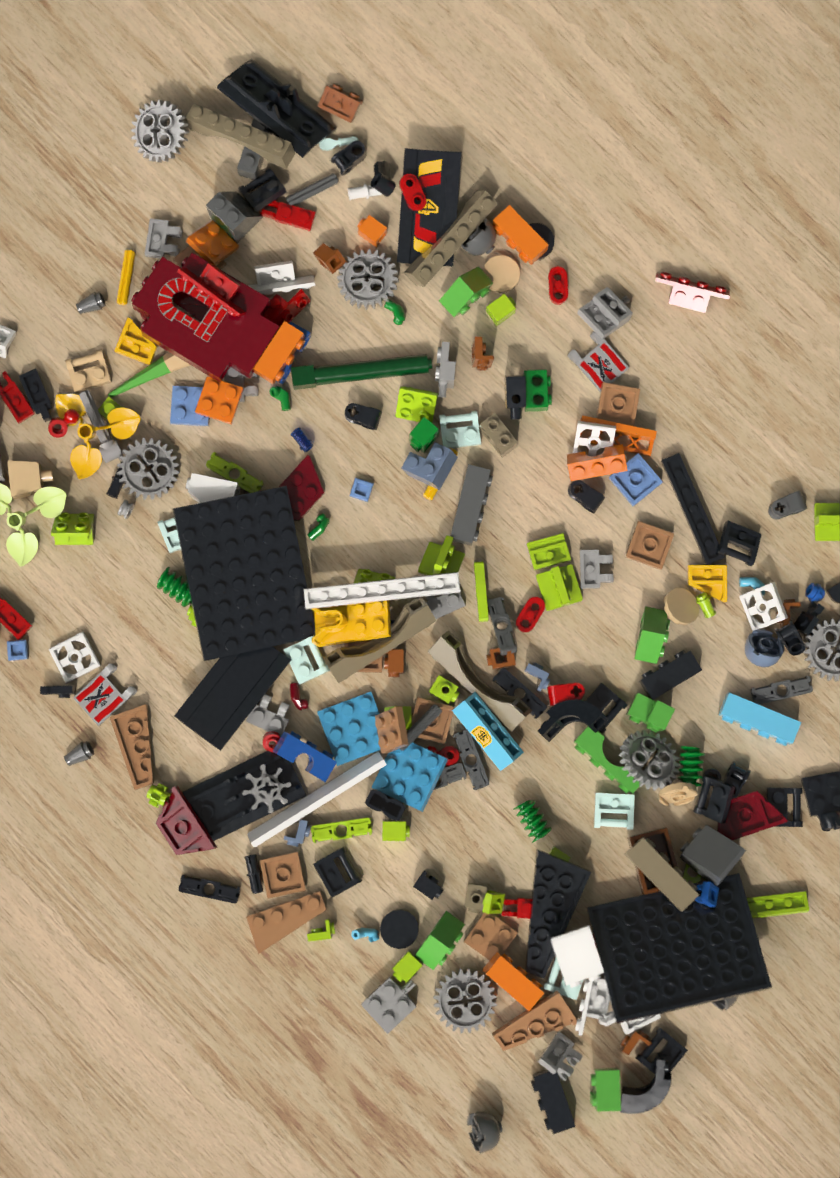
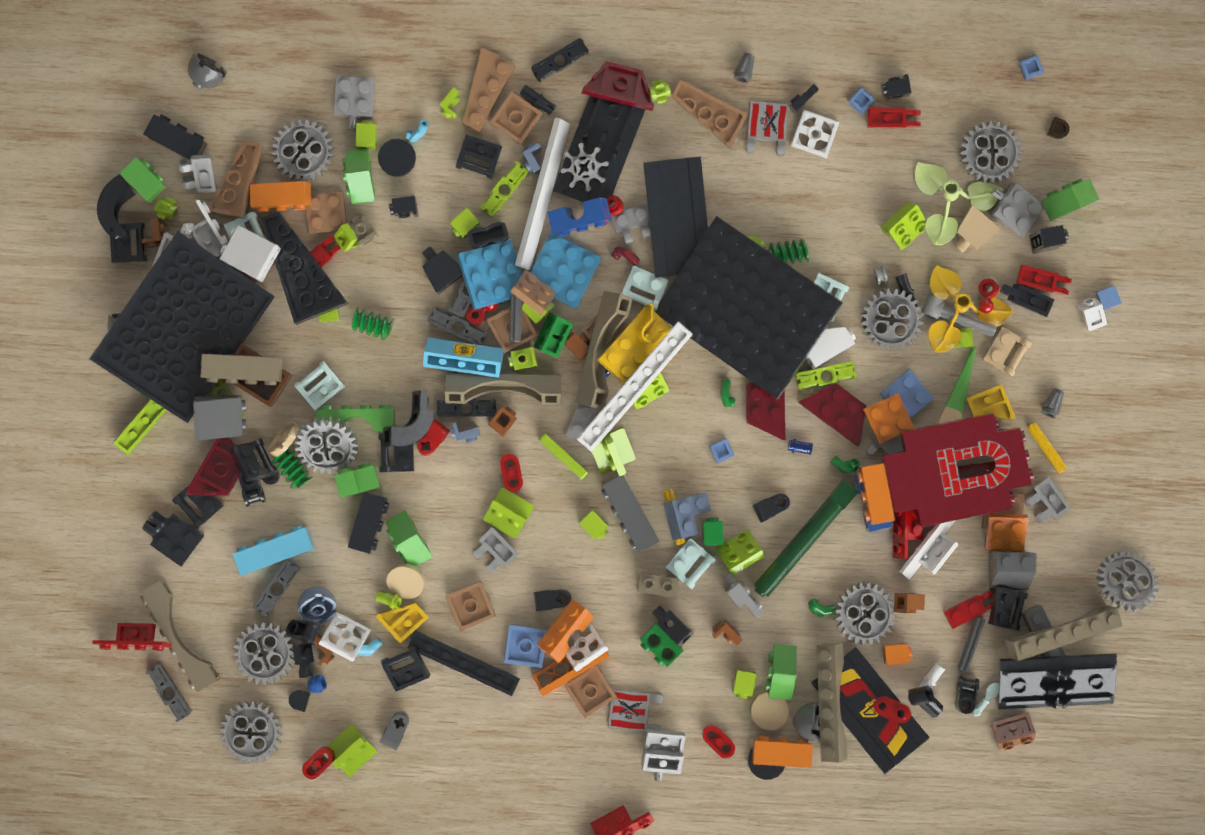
camera: 140 degrees right, 5 degrees up
(216, 285) = (970, 498): red bracket -> none
(249, 440) = (838, 410): none -> dark red wing
(406, 686) = (553, 335): none -> green brick
(444, 813) = (441, 269): none -> black torso
(504, 520) = (594, 525): none -> lime brick
(504, 637) = (534, 449): dark grey piece -> none
(548, 551) = (540, 532): lime plate -> none
(609, 1053) = (166, 208): none -> lime gear
(709, 894) = (195, 386): blue tile -> none

